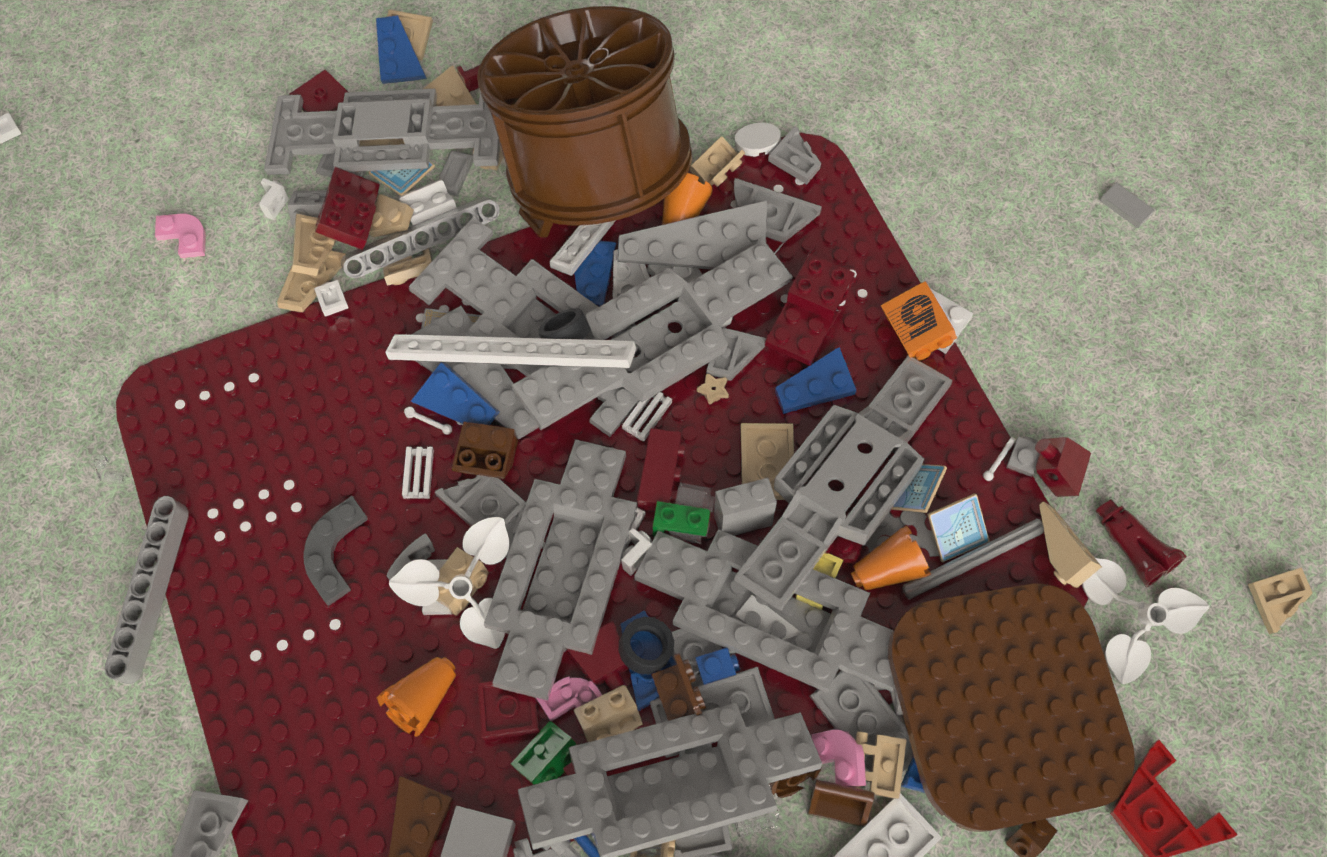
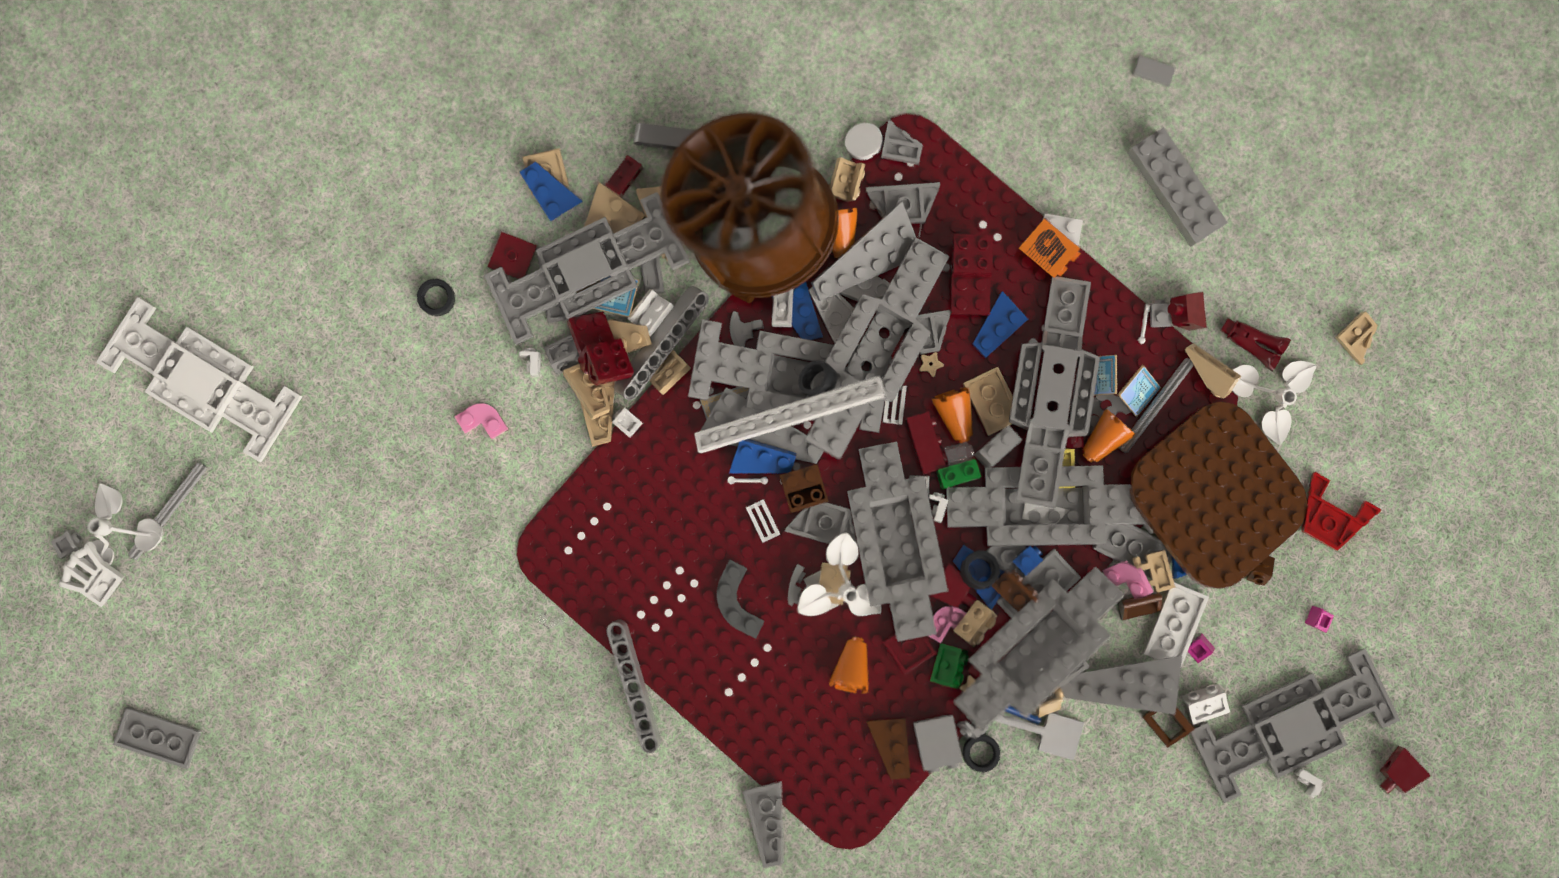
camera: 30 degrees left, 20 degrees up
(222, 112) = (434, 283): none -> black tyre
(515, 261) = (740, 331): none -> light grey piece
(714, 449) = (955, 412): none -> orange cone
(1106, 329) = (1177, 187): none -> light grey brick

